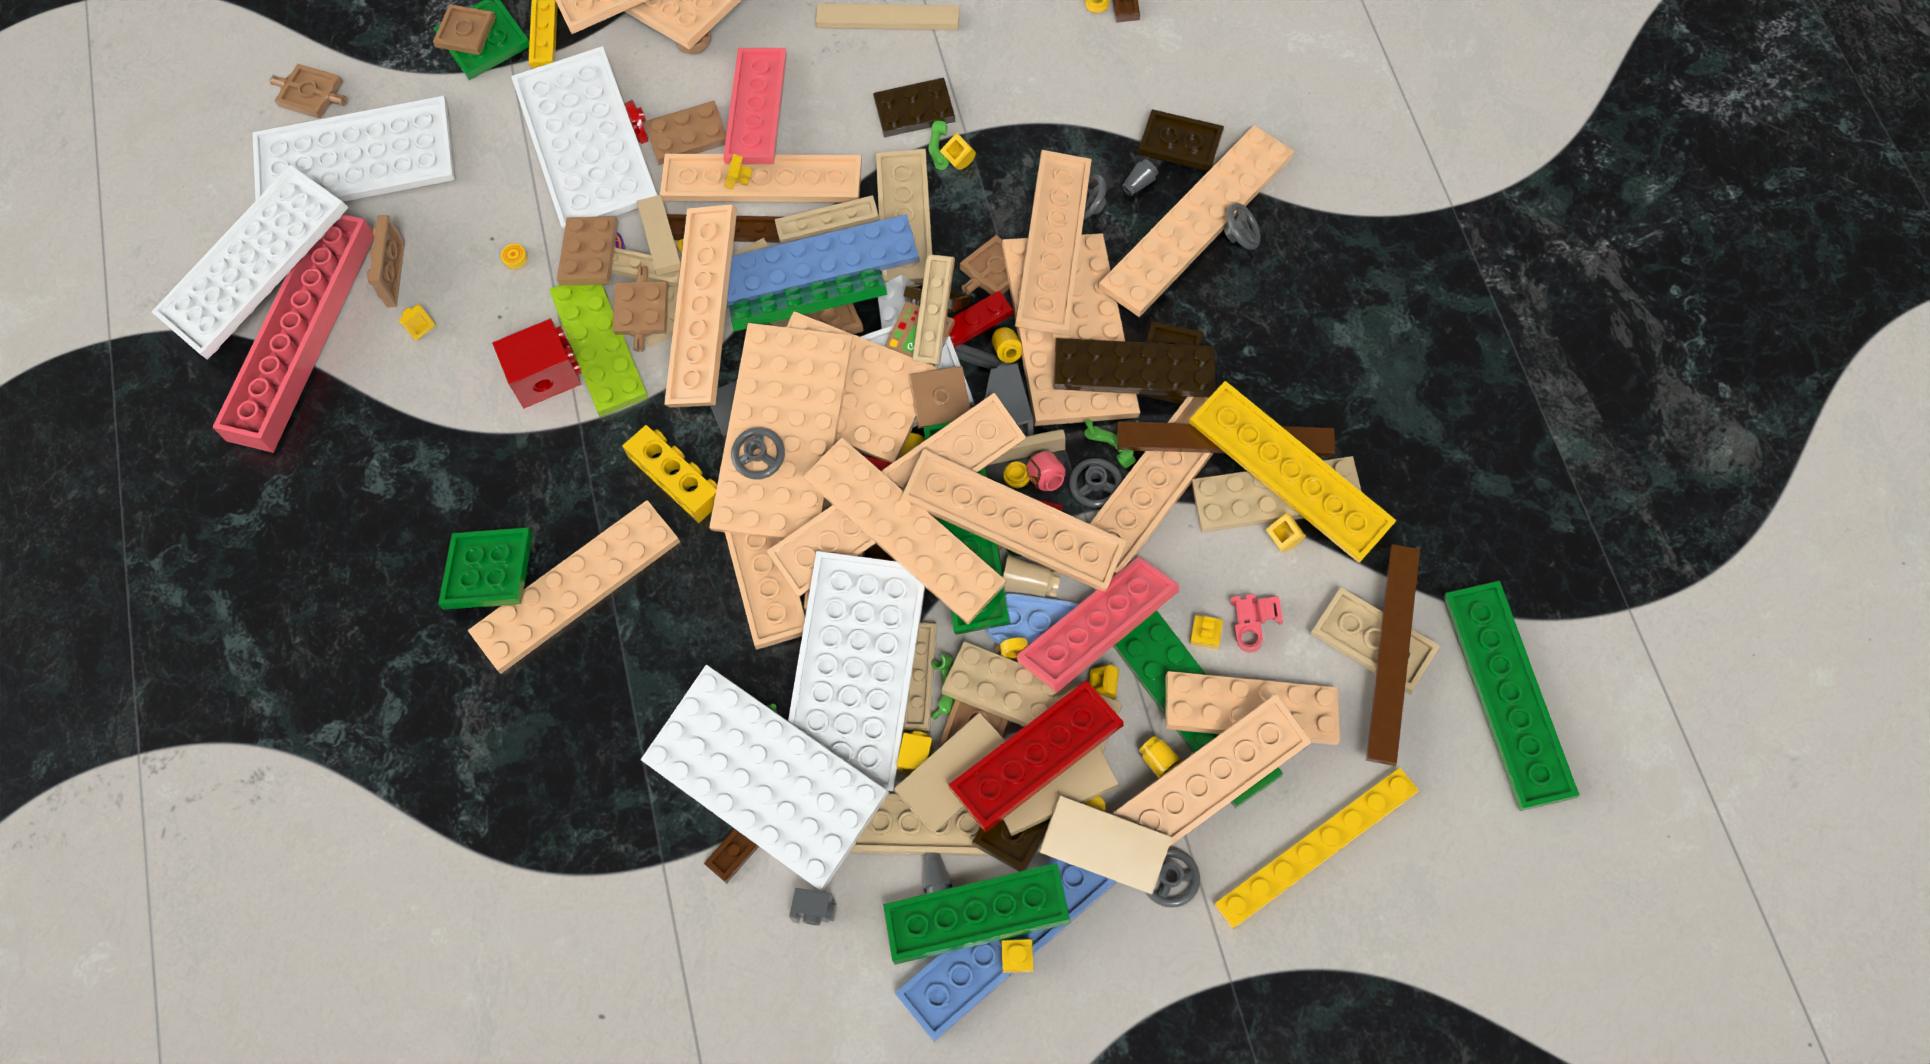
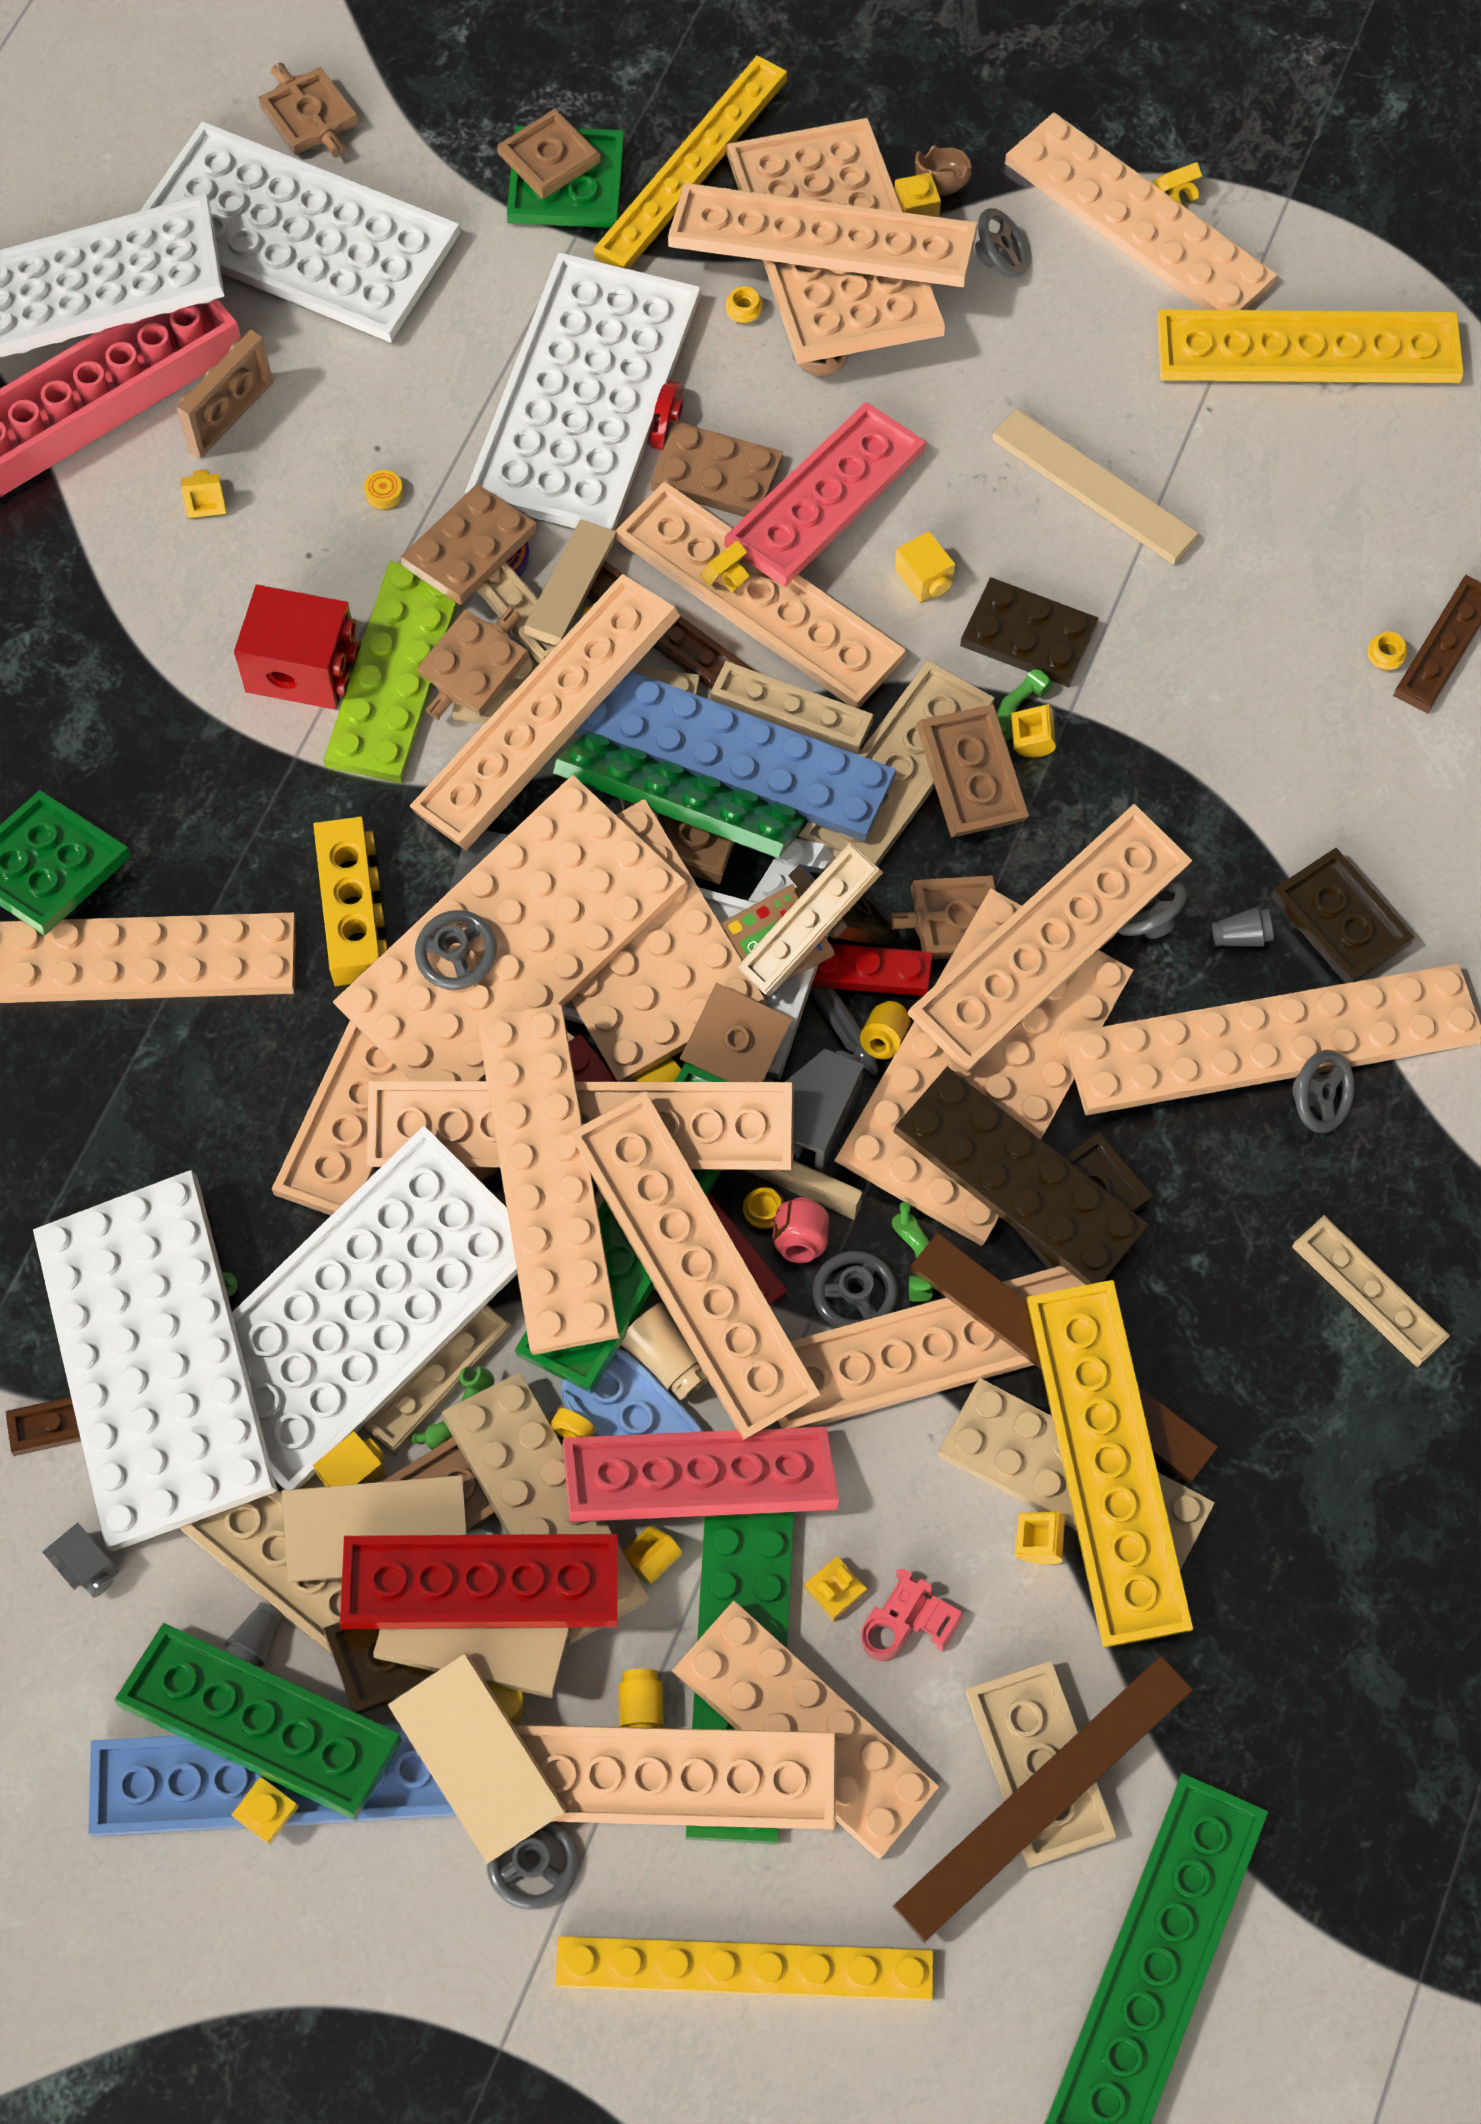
camera: 30 degrees right, 0 degrees up
(632, 41) = (741, 297): none -> yellow plate
(836, 109) = (925, 567): none -> yellow brick
(944, 190) = (972, 770): none -> medium nougat plate
(1340, 306) = (1370, 1291): none -> tan tile

